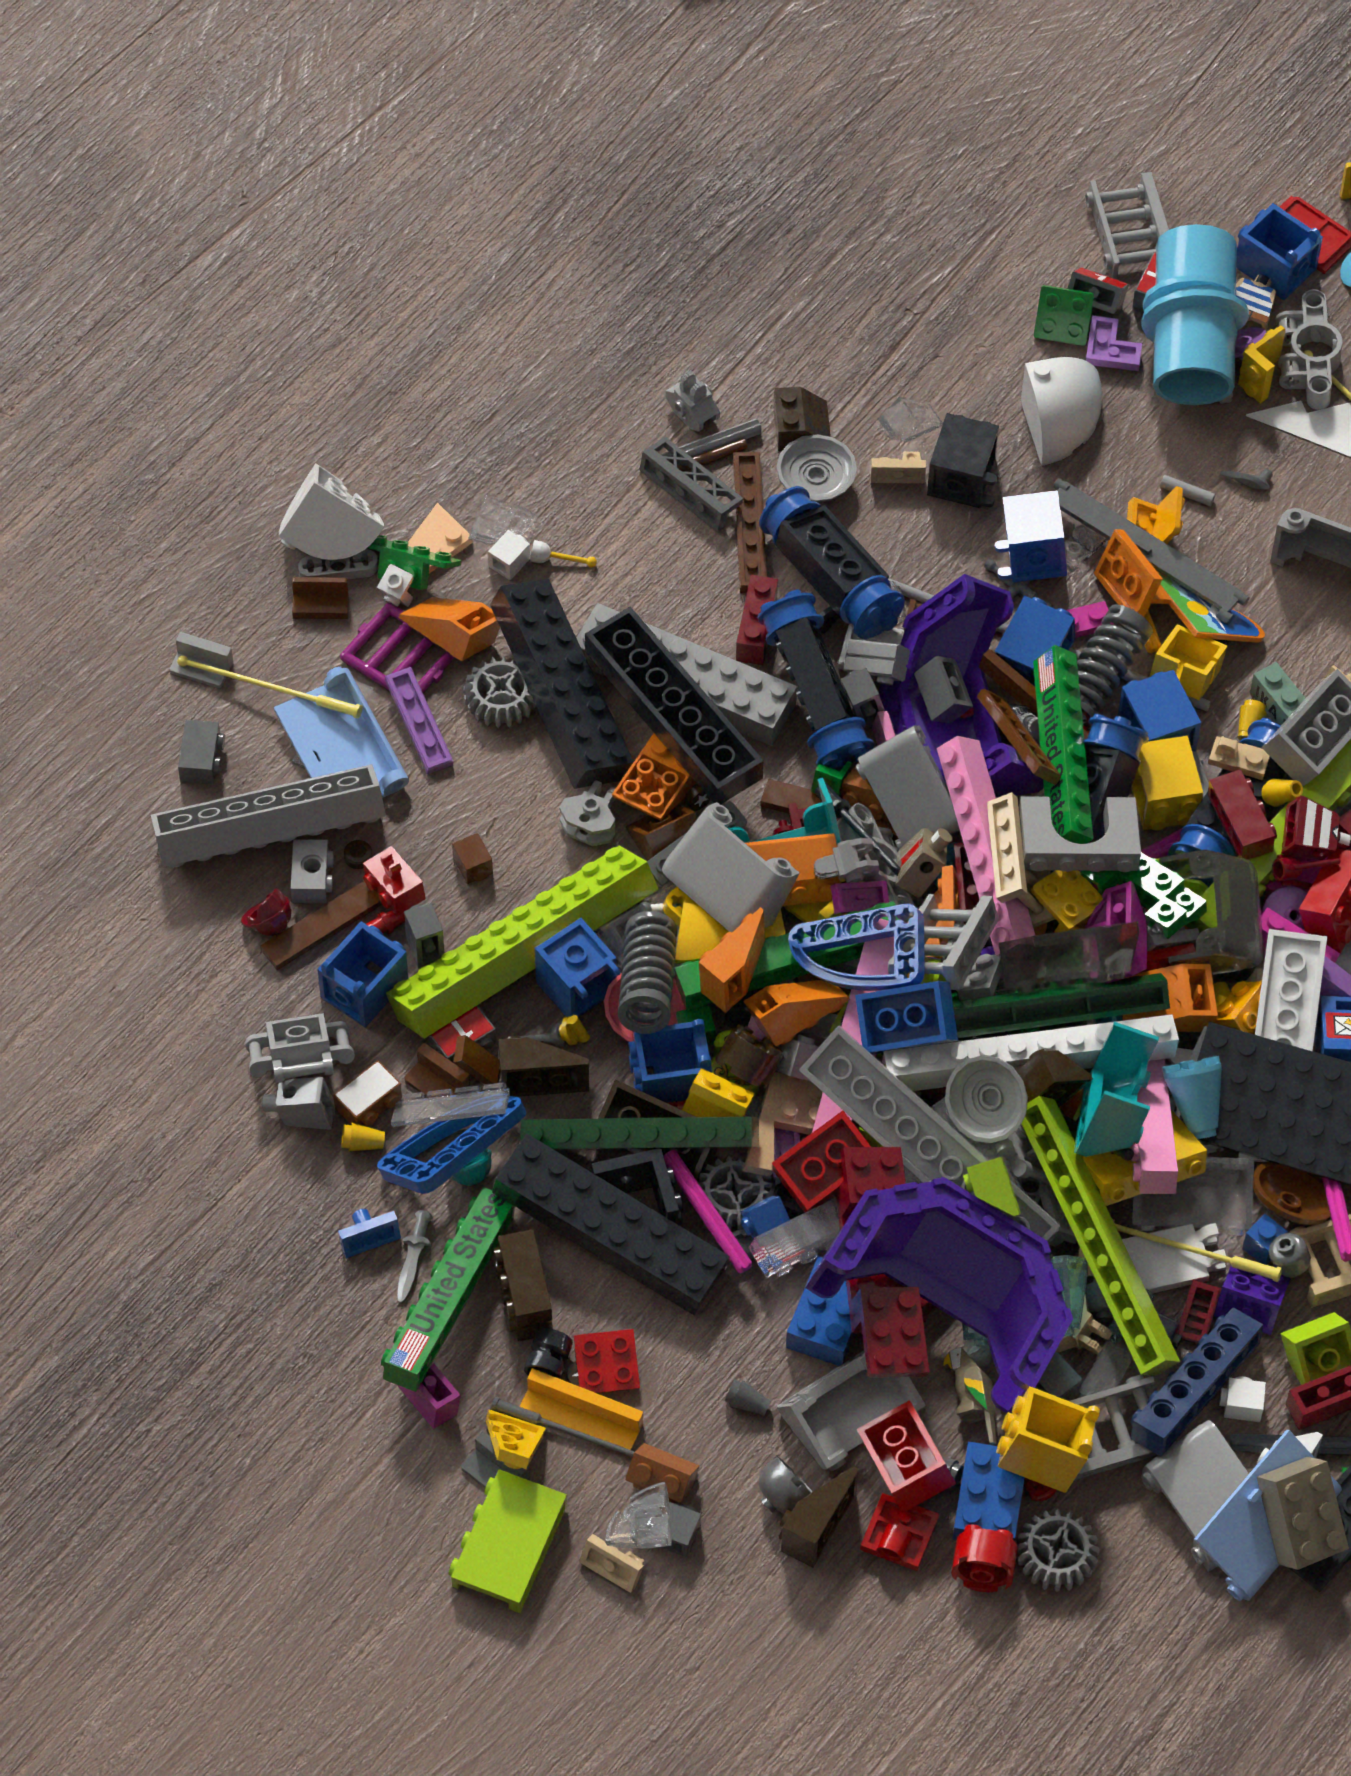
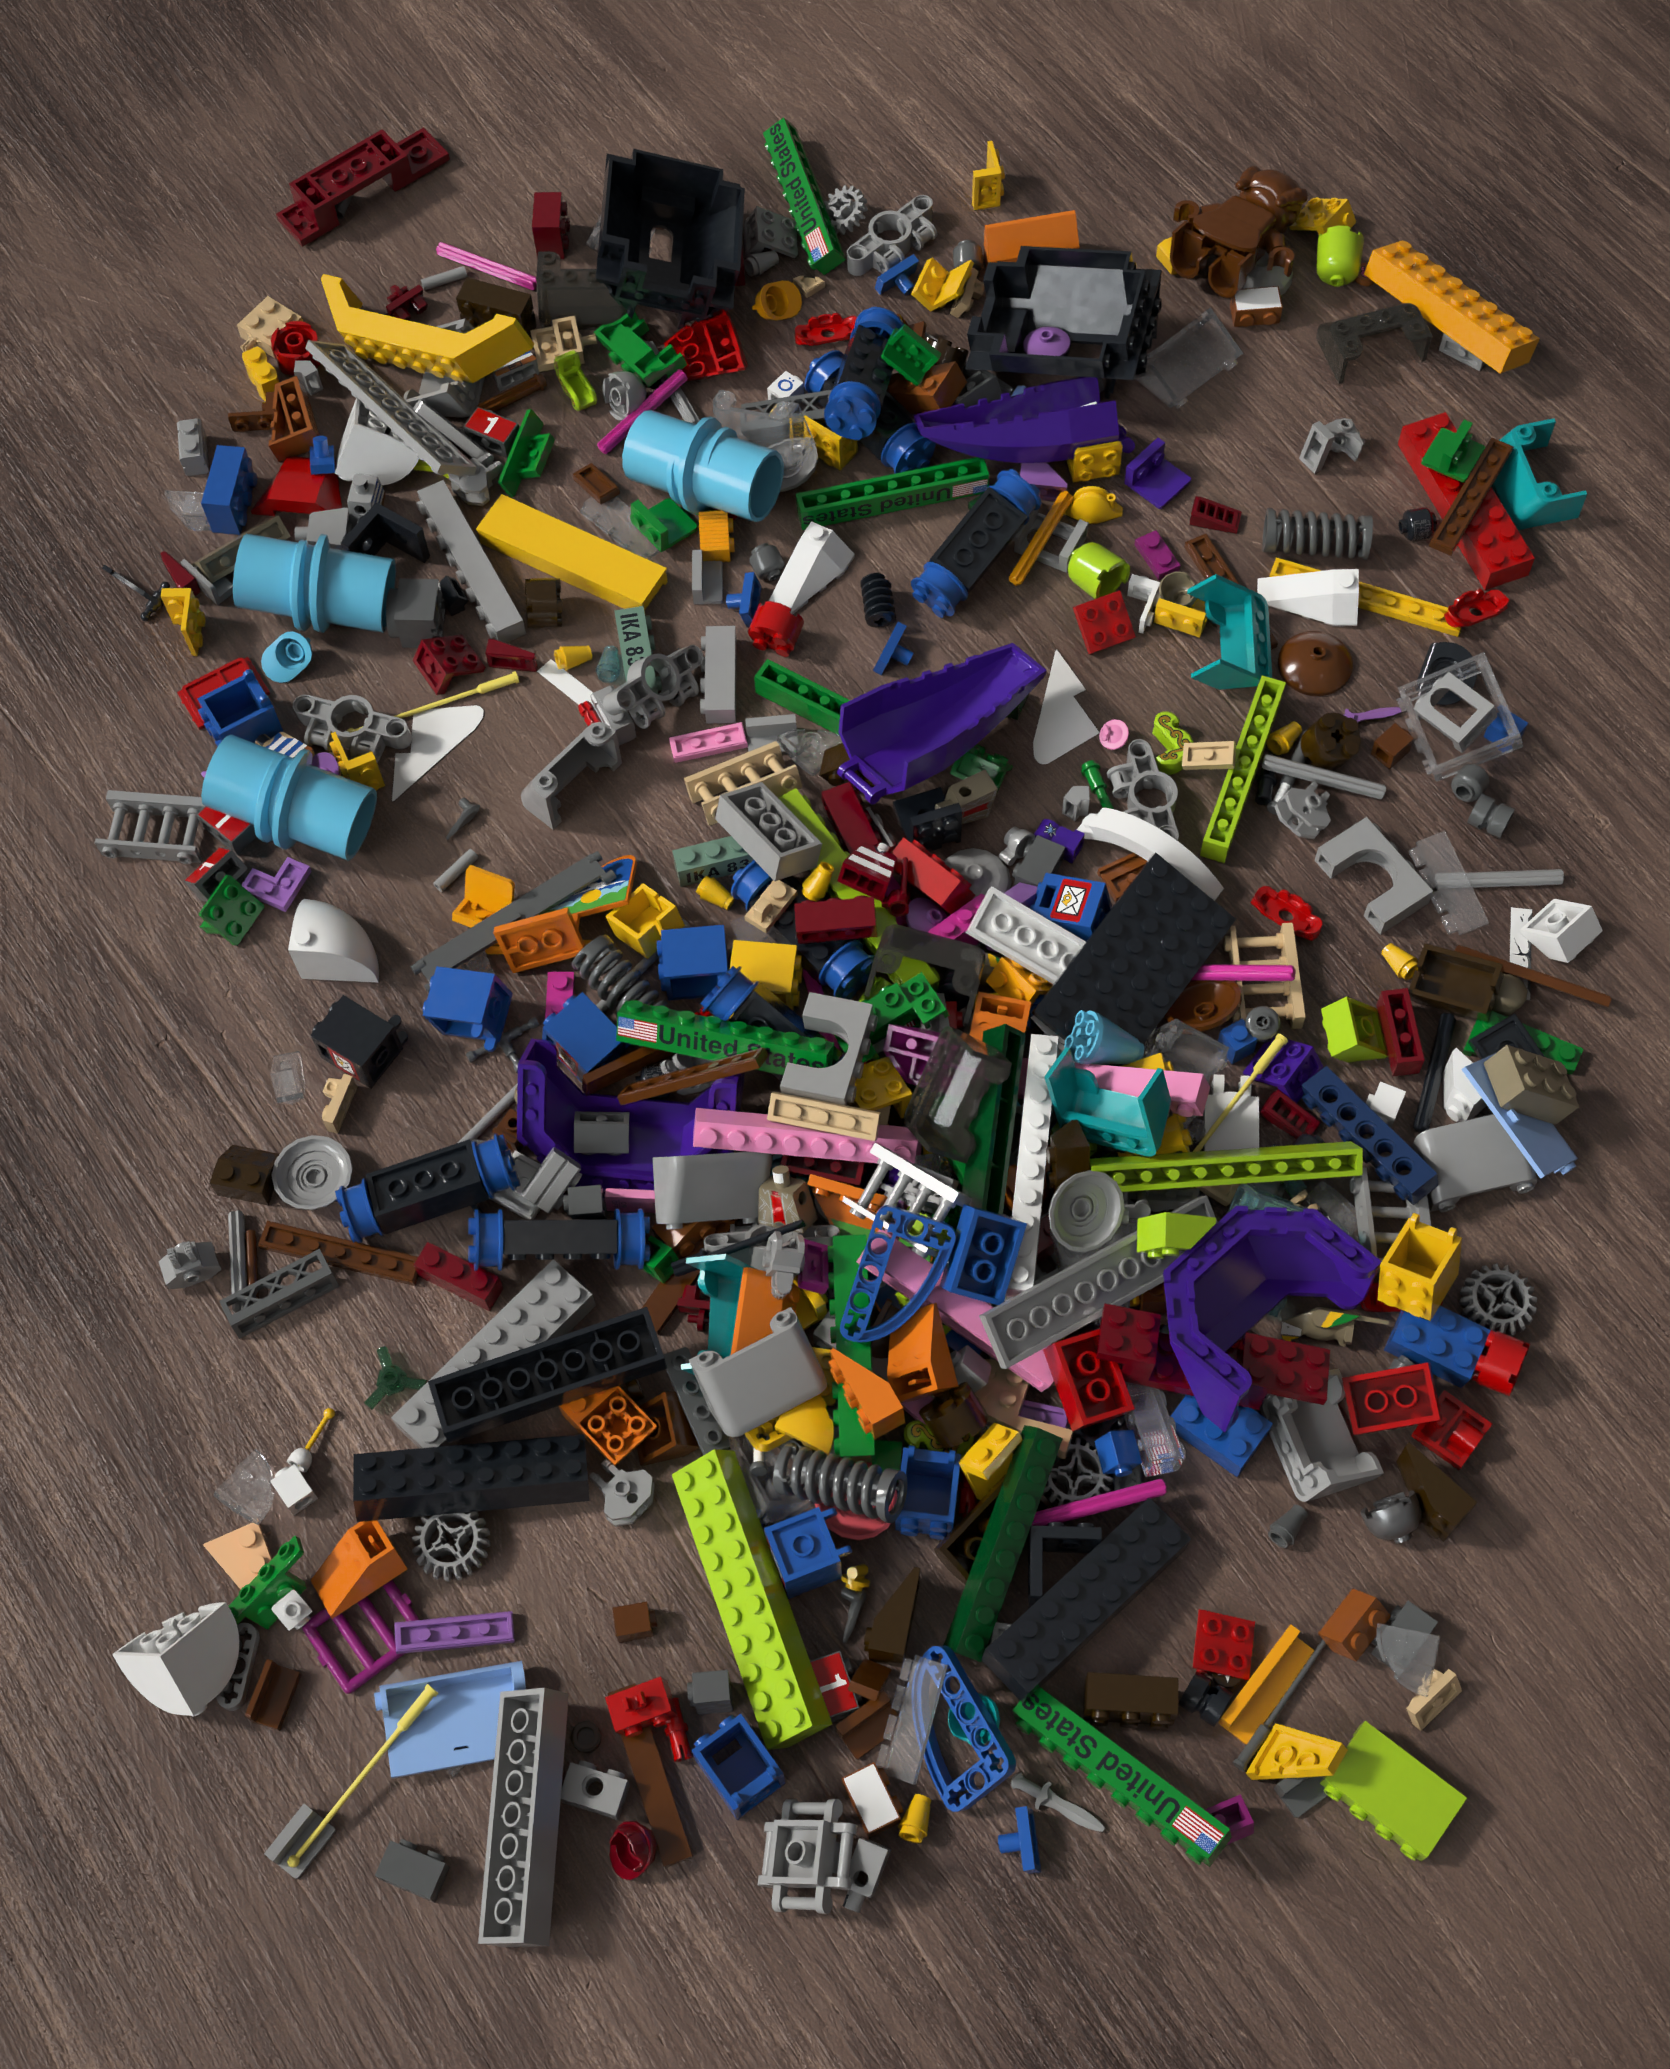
camera: 70 degrees left, 5 degrees up
(638, 597) = (391, 1380): none -> clear green piece

